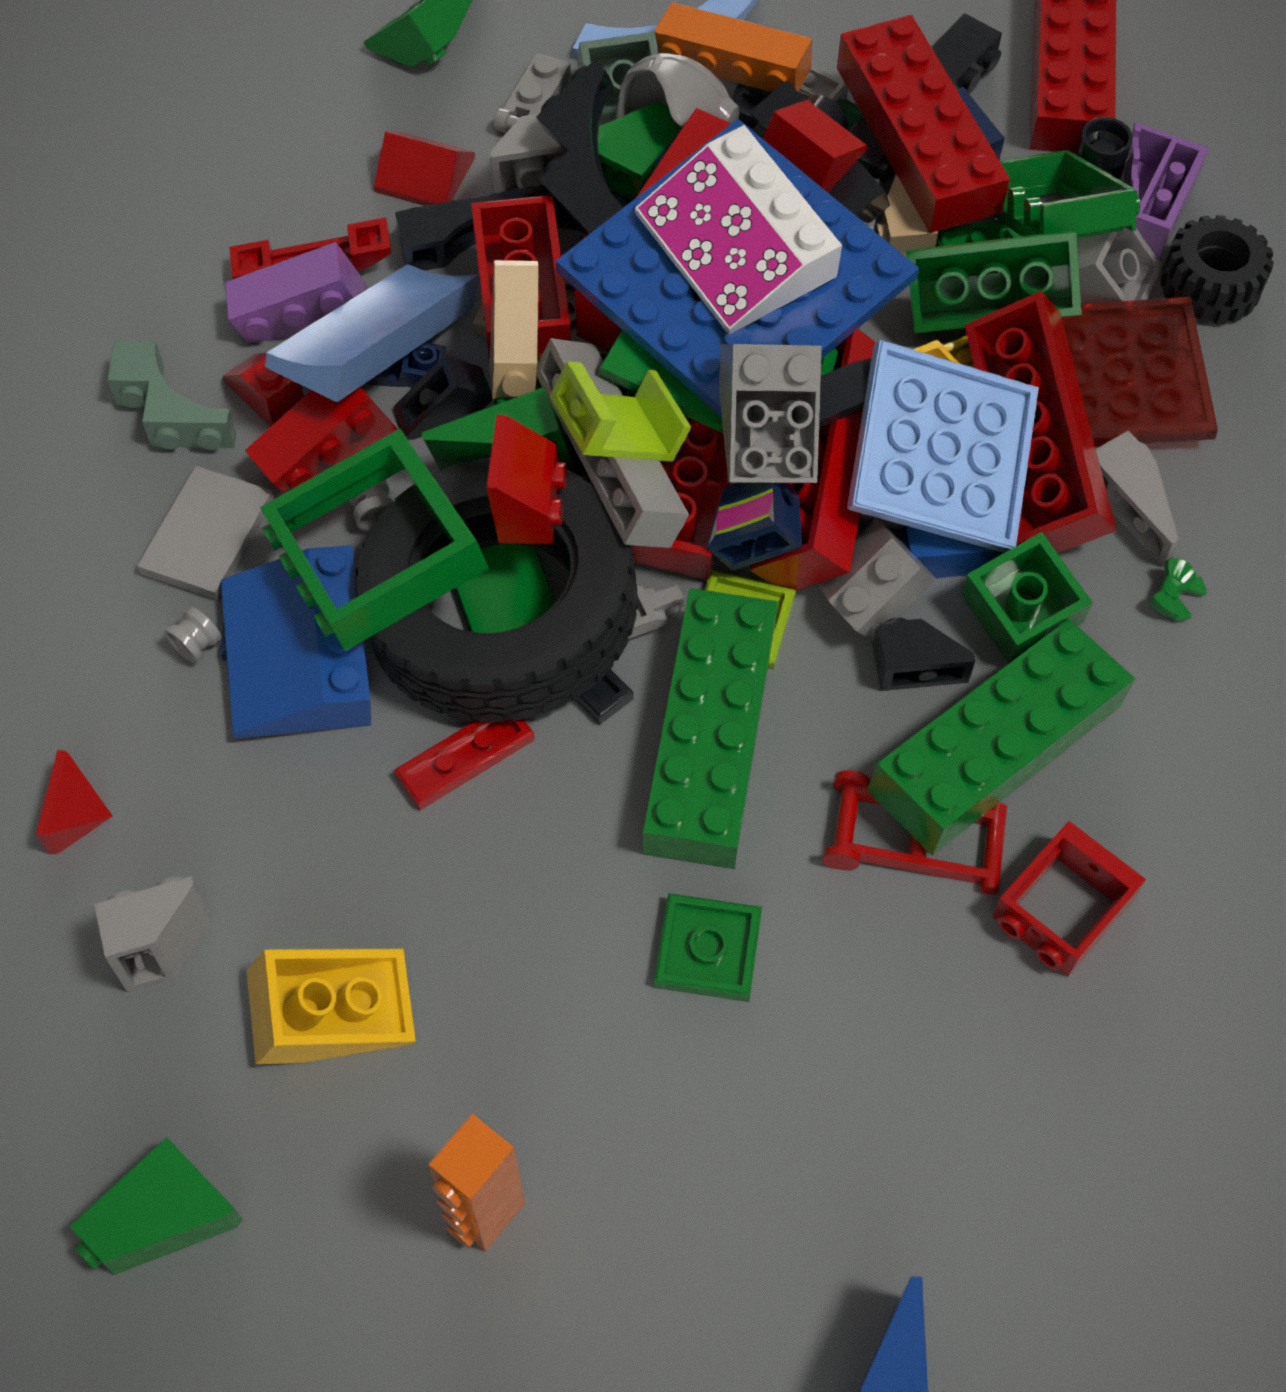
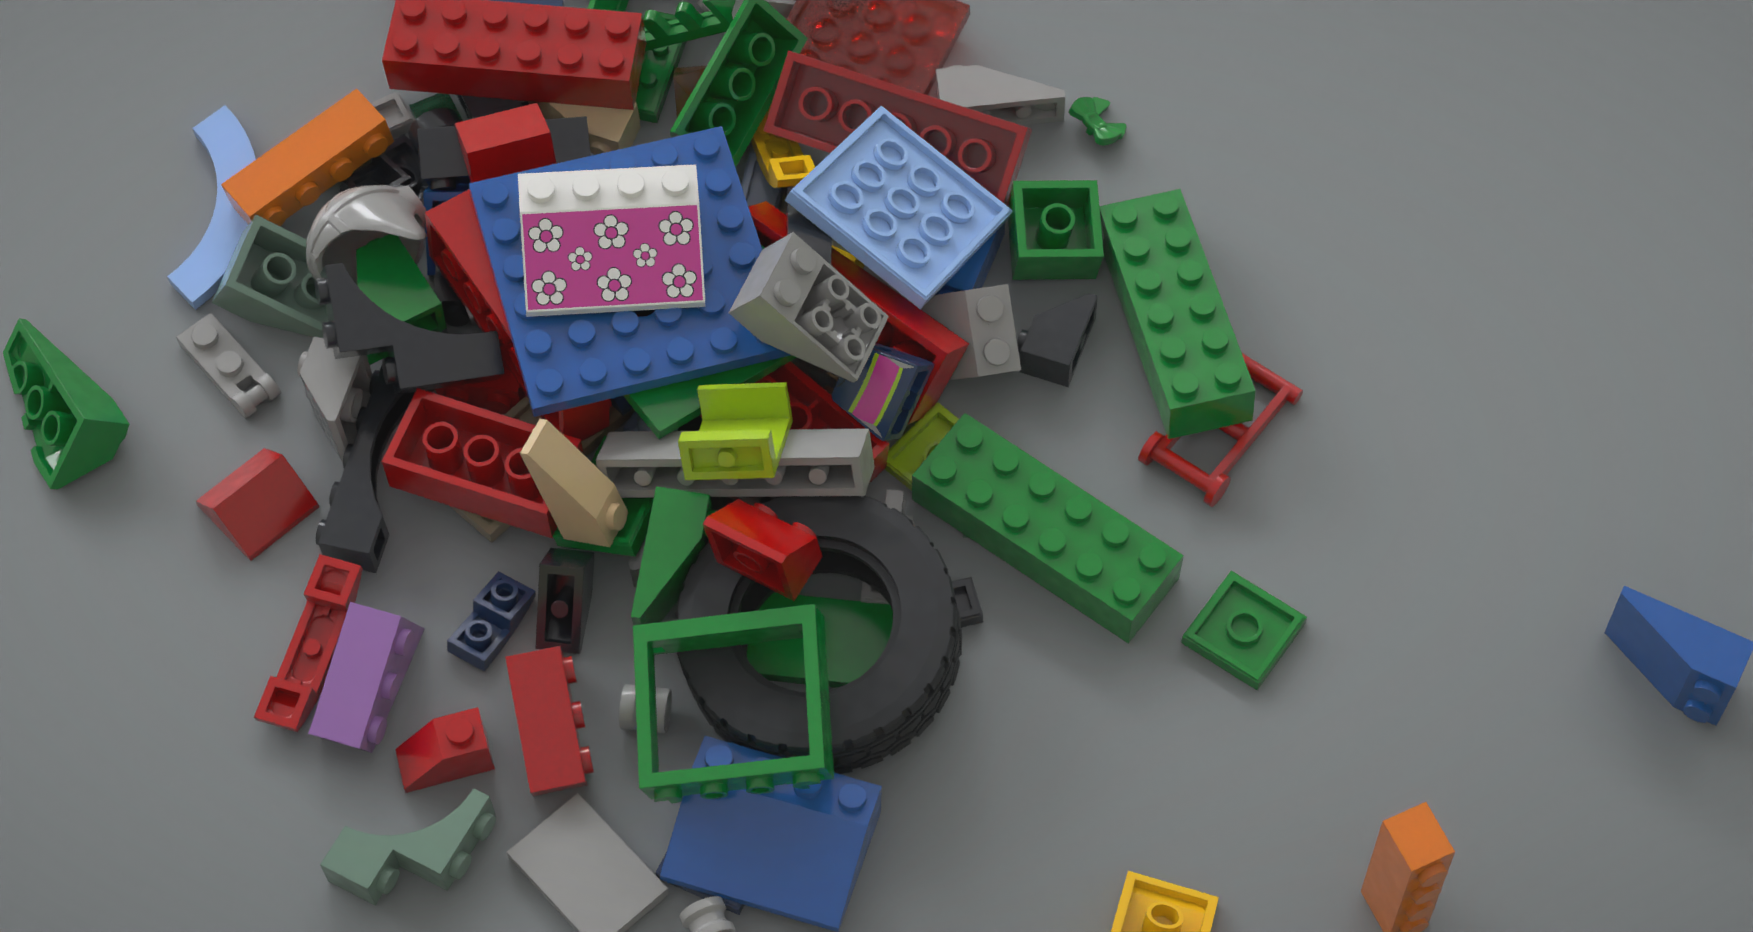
camera: 60 degrees left, 0 degrees up
(373, 330) = (470, 613): medium blue arch -> none
(461, 758) = (961, 750): red tile -> none
(1091, 863) = (1329, 306): red window -> none

